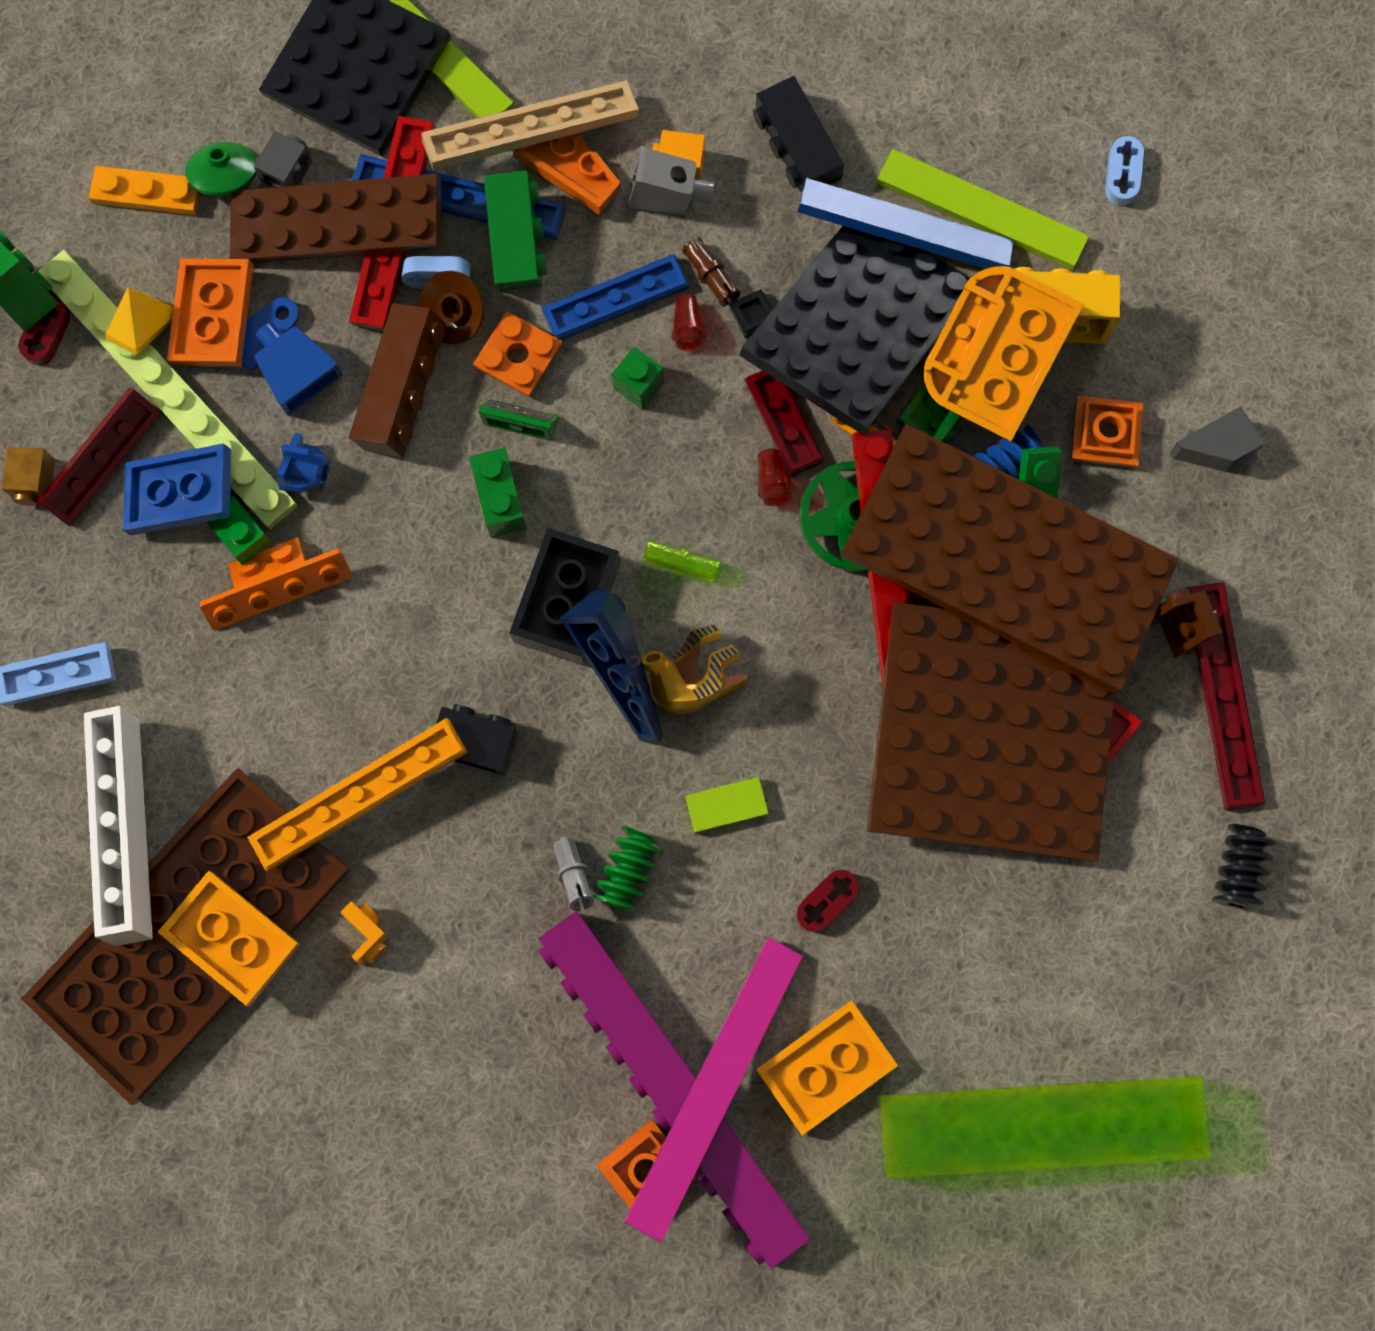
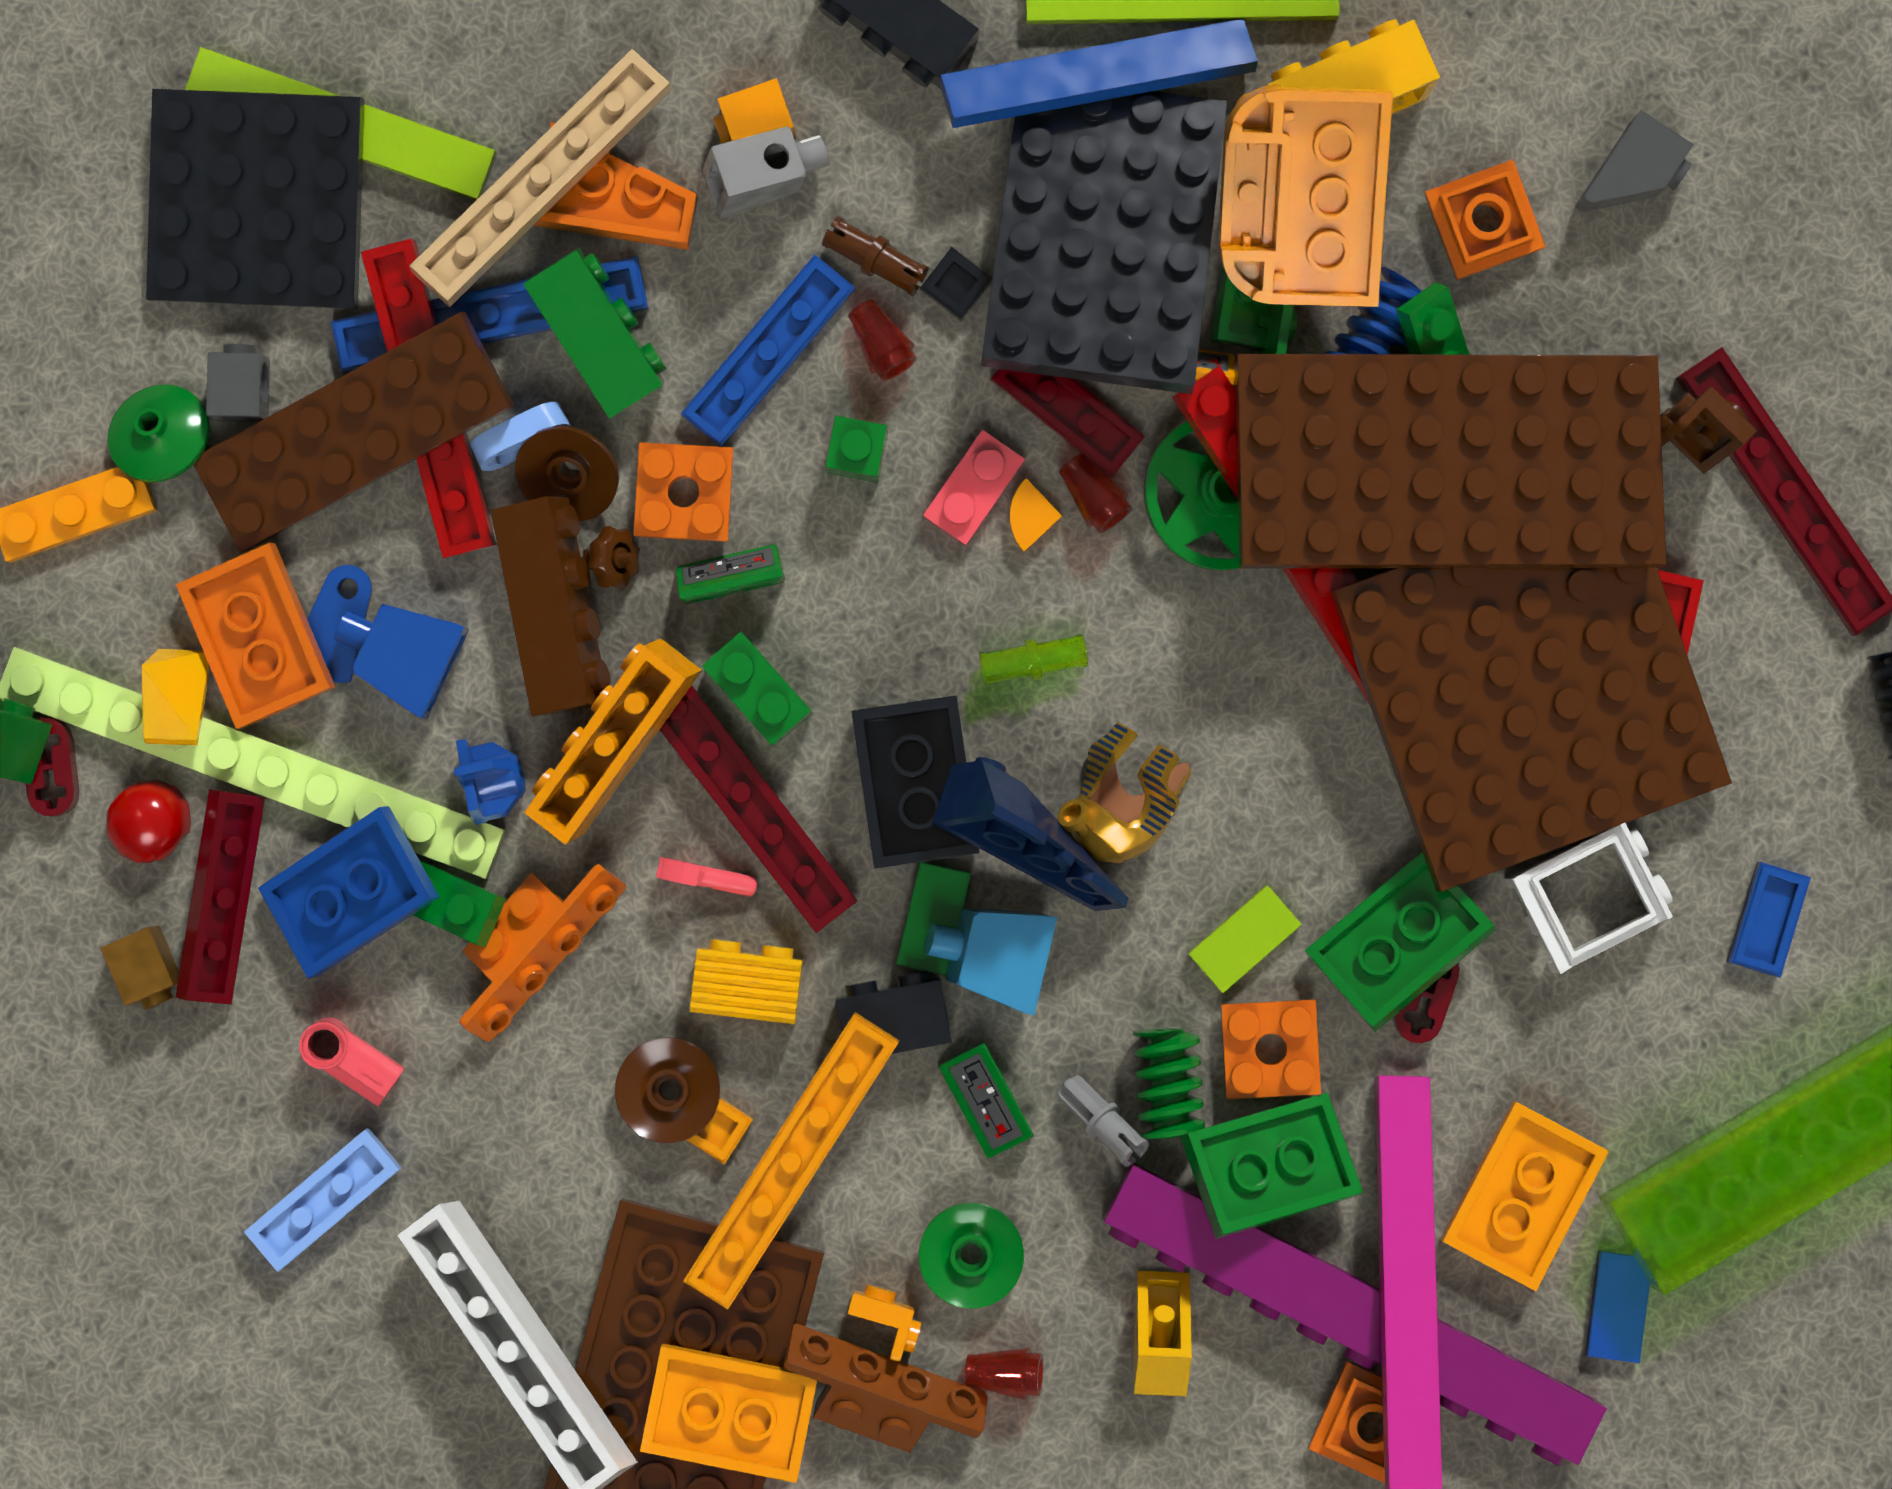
camera: 30 degrees left, 10 degrees up
(83, 391) = (148, 821): none -> red hair
(122, 596) = (356, 1062): none -> coral piece
(292, 703) = (640, 1094): none -> reddish brown dish
(325, 755) = (722, 1132): none -> light orange tile
(333, 978) = (881, 1395): none -> dark orange bracket
(389, 474) = (612, 740): none -> light orange brick
(392, 671) = (747, 983): none -> yellow brick
(395, 586) = (705, 876): none -> coral bar
(422, 913) = (974, 1283): none -> green dish
(424, 1009) = (1006, 1372): none -> clear red cone
(453, 371) = (612, 557): none -> reddish brown piece
(454, 553) = (756, 812): none -> dark red plate
(506, 824) = (986, 1100): none -> slope
(533, 692) = (937, 900): none -> green tile
(538, 1035) = (1162, 1333): none -> yellow slope
(559, 731) = (996, 954): none -> dark azure torso
(667, 957) = (1271, 1165): none -> green plate
(699, 439) = (974, 488): none -> coral plate
(701, 860) = (1298, 1068): none -> orange piece
(726, 473) = (1030, 515): none -> light orange tile
(825, 855) = (1399, 942): none -> green plate
(852, 1178) = (1617, 1308): none -> blue tile
(929, 890) = (1543, 919): none -> white window
(1081, 967) = (1769, 919): none -> blue tile

